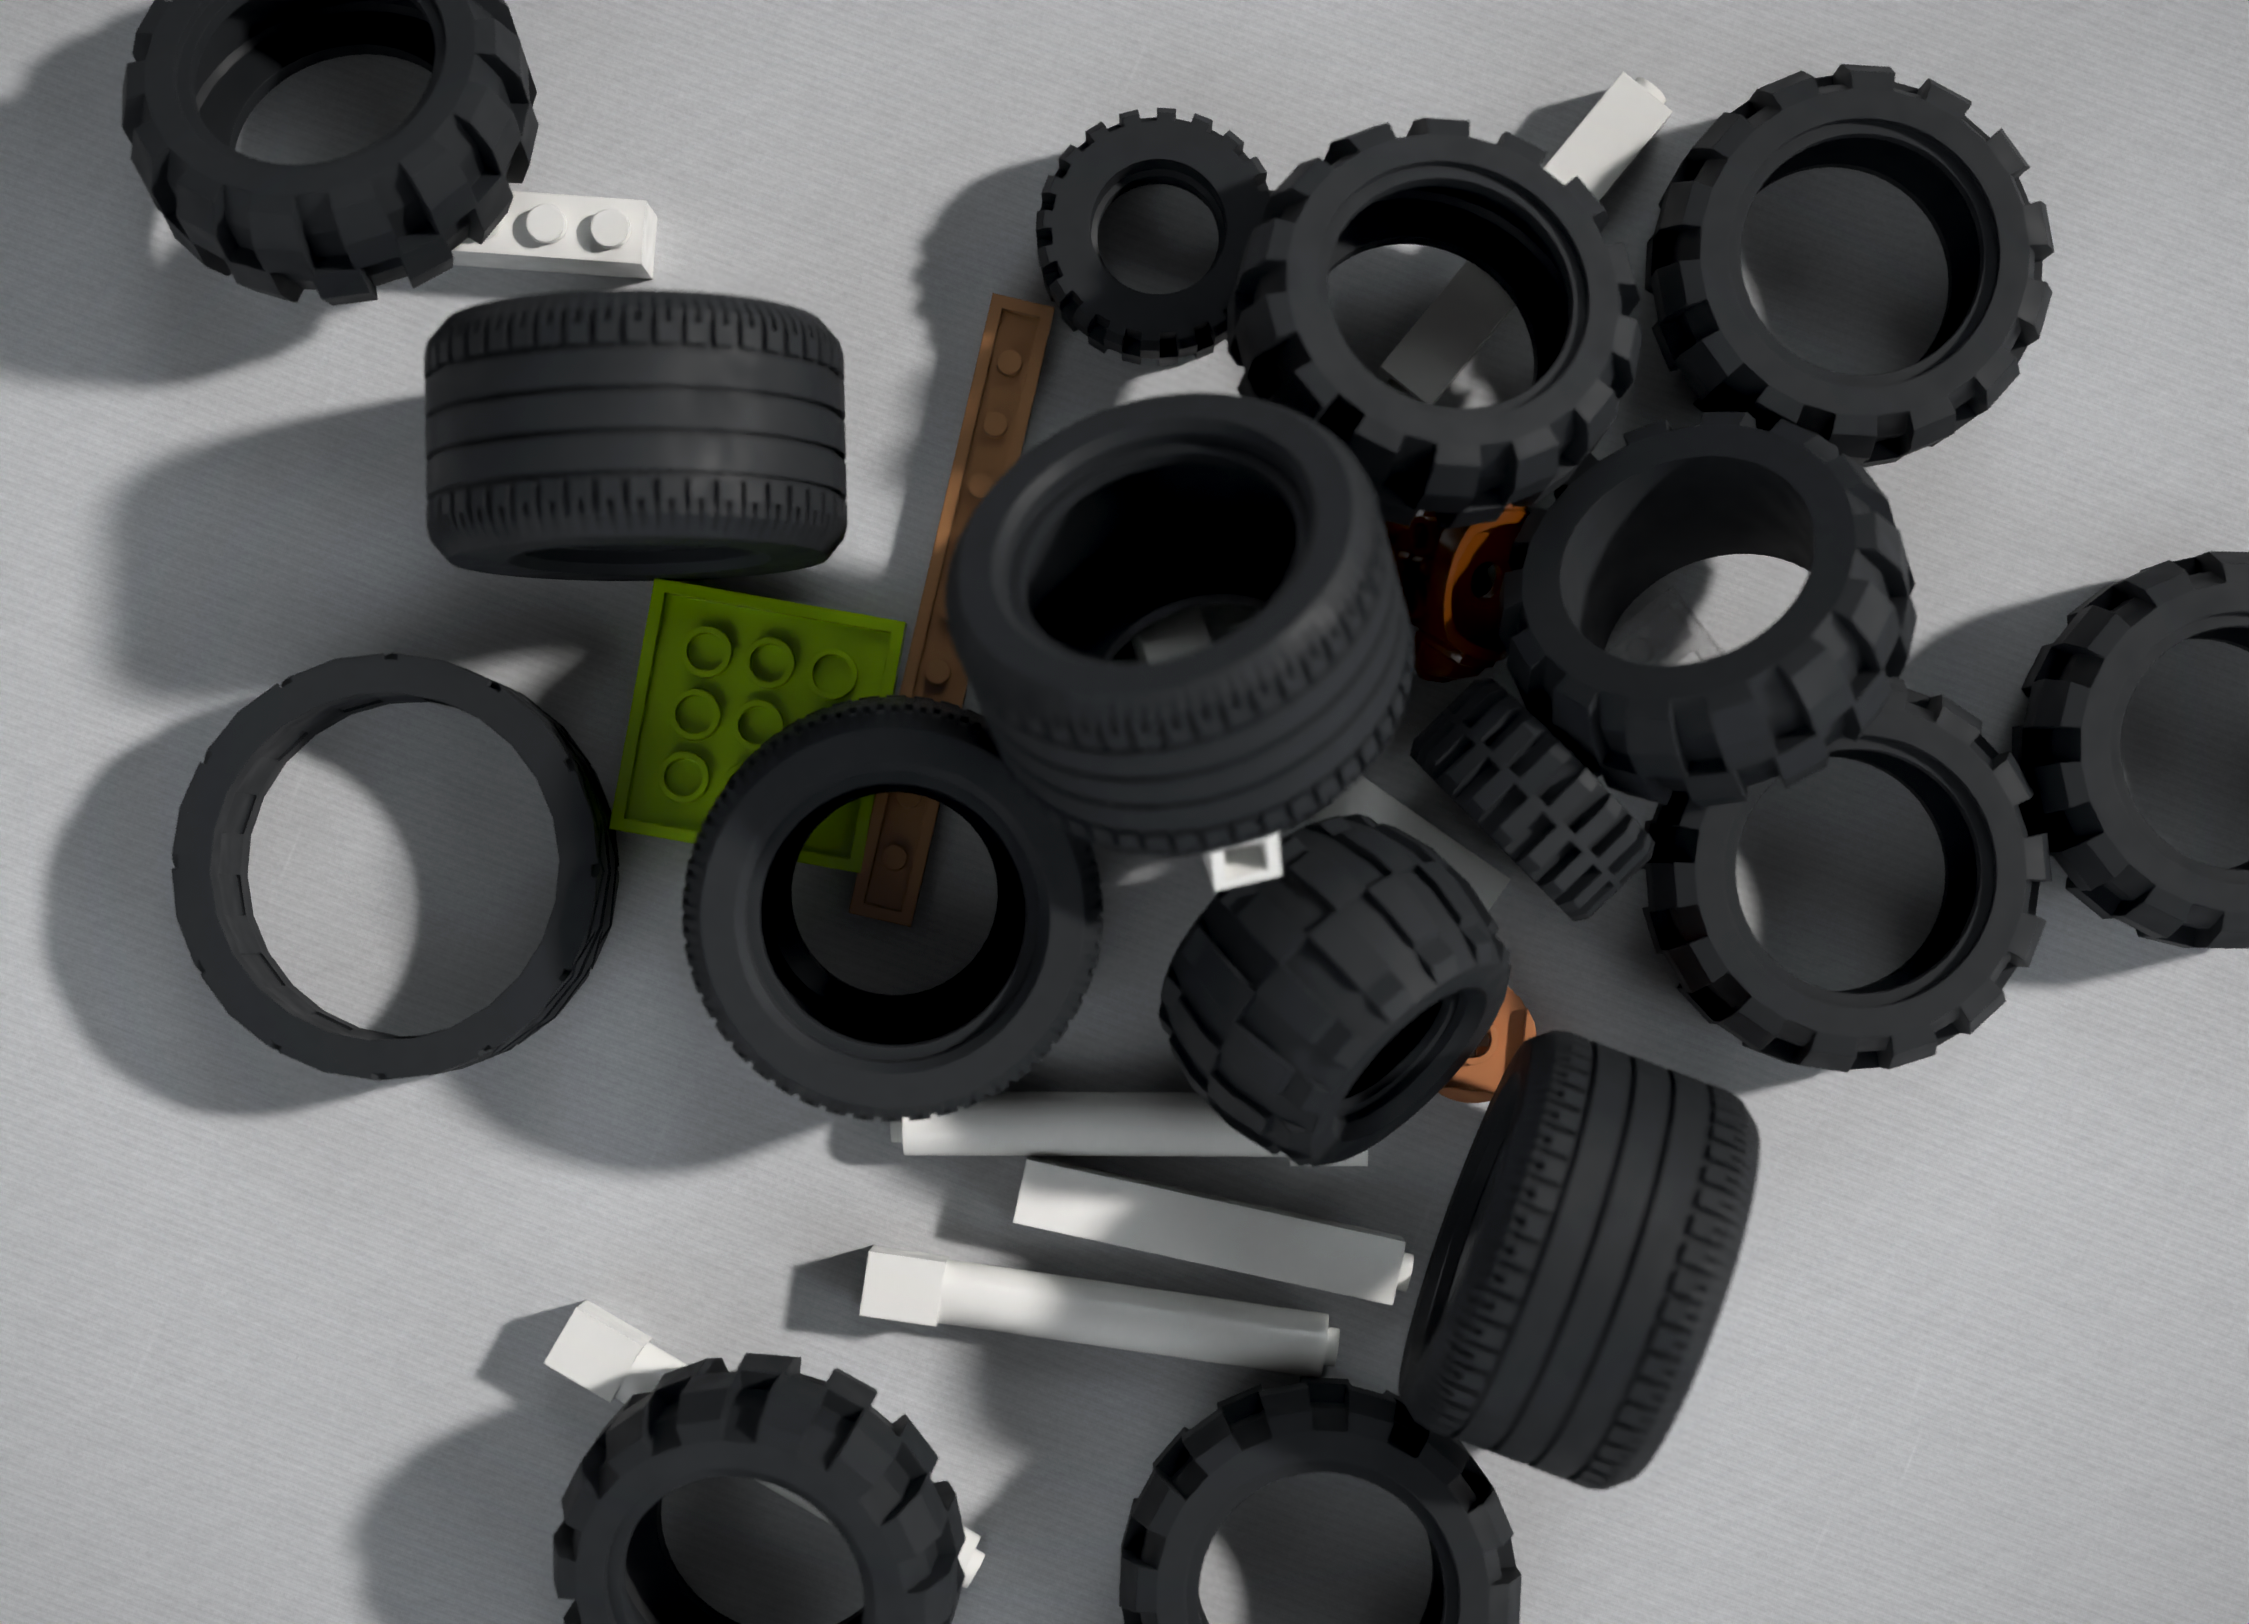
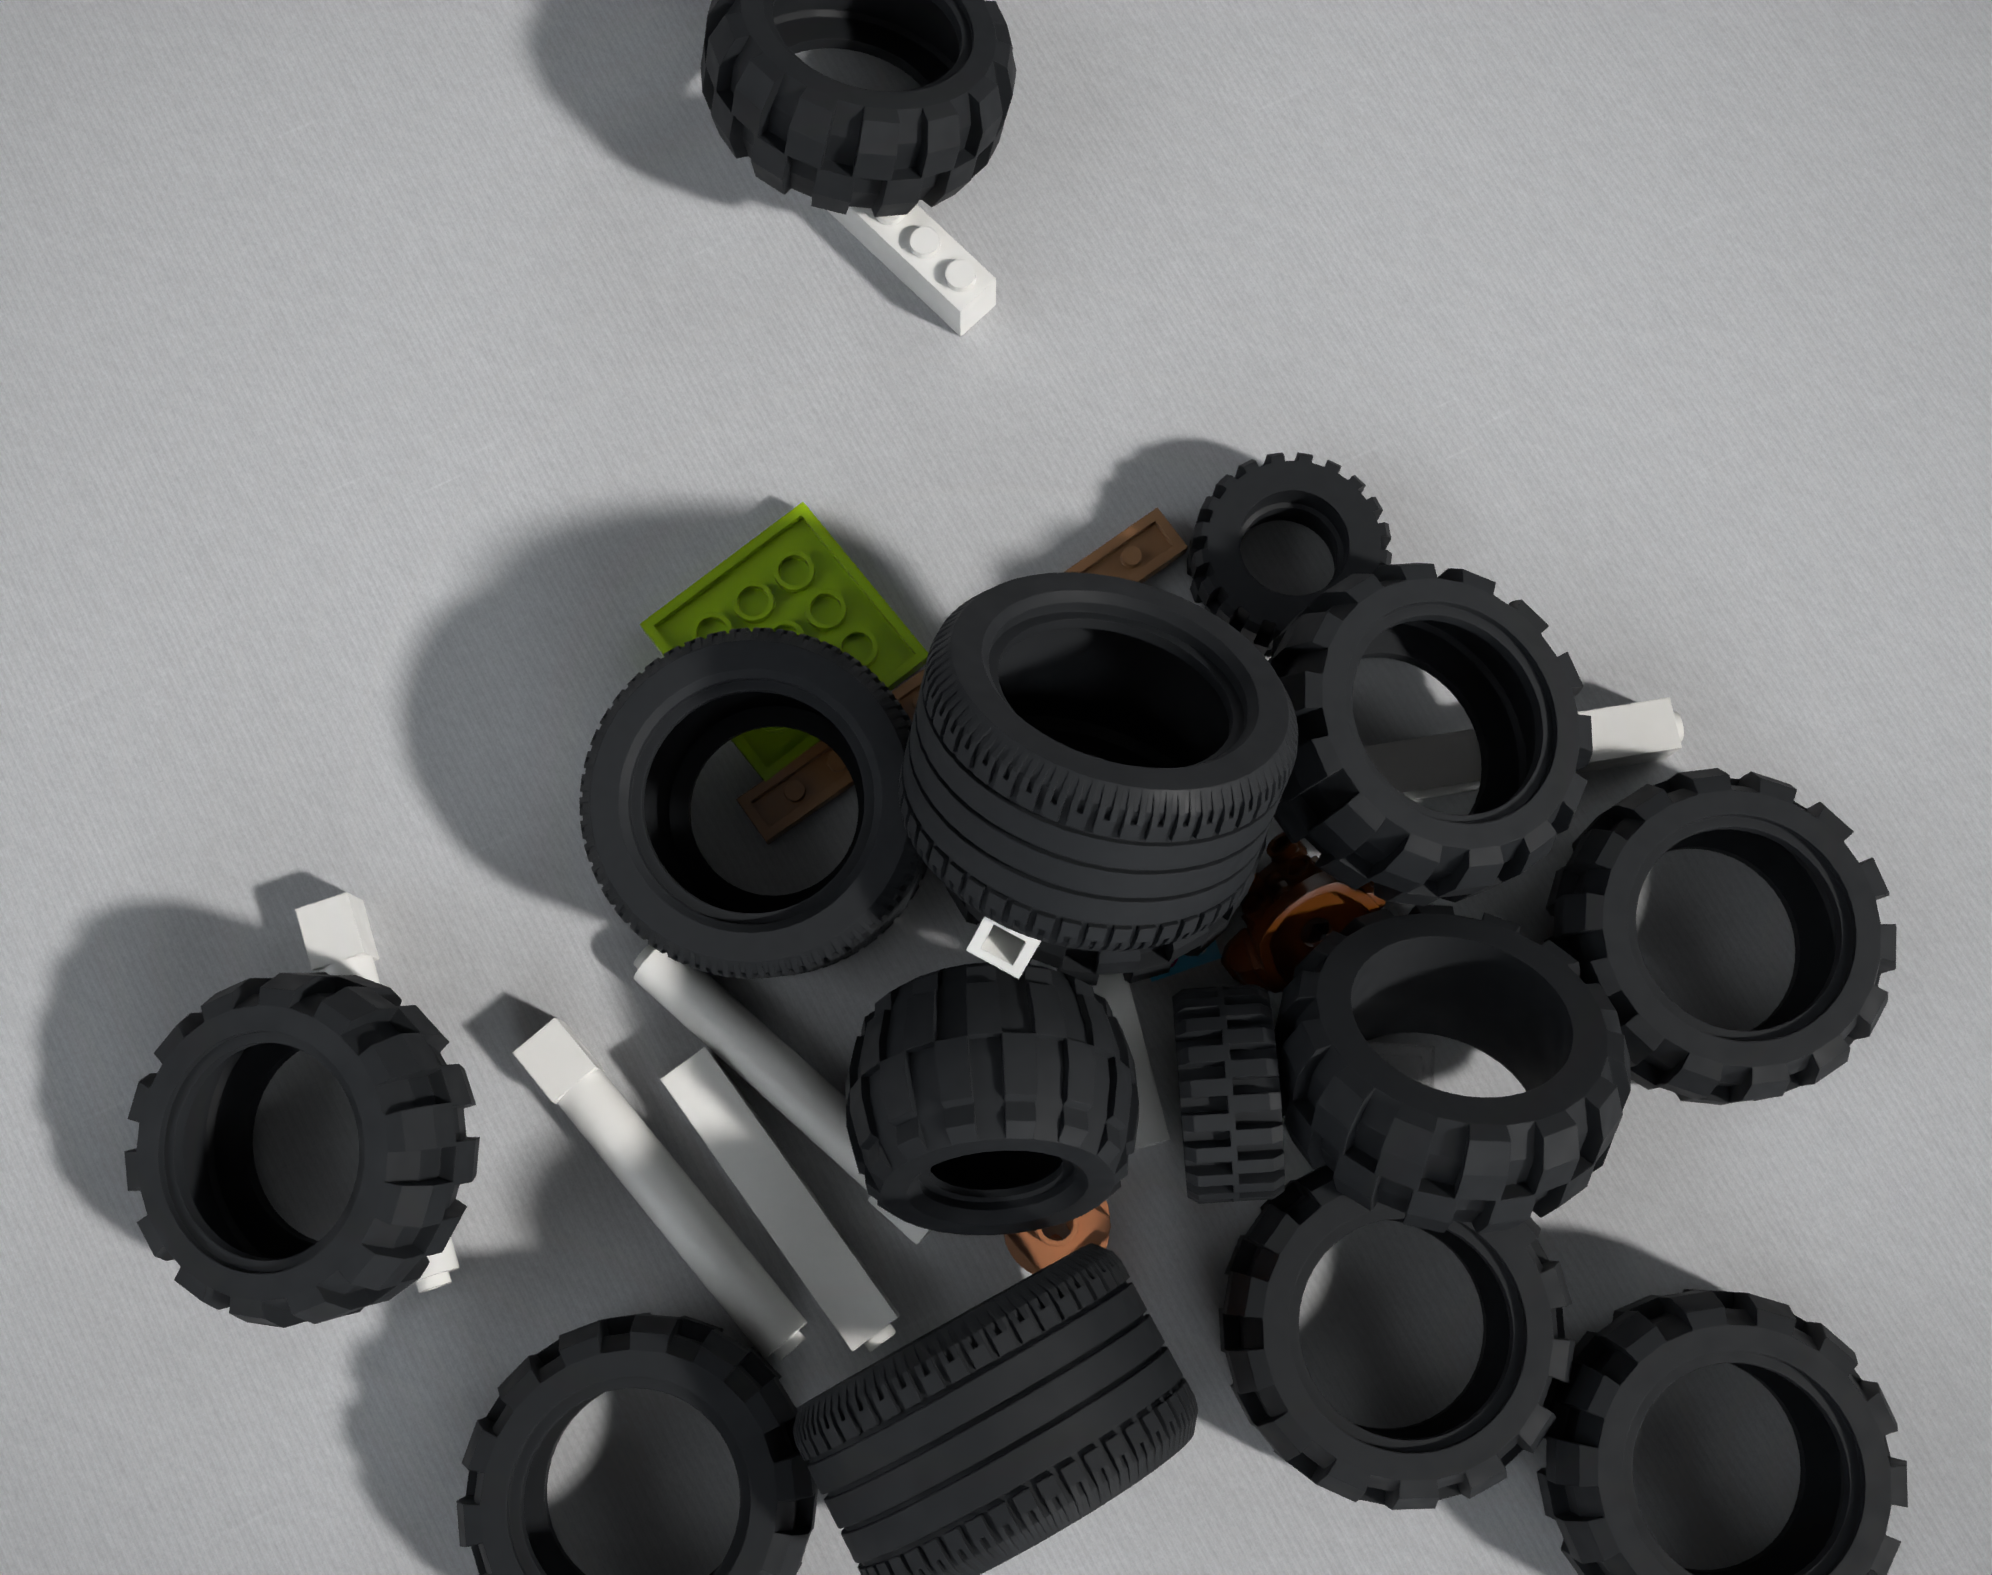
camera: 35 degrees right, 10 degrees down
(214, 853) = (401, 431): black tyre -> none
(634, 437) = (861, 384): black tyre -> none

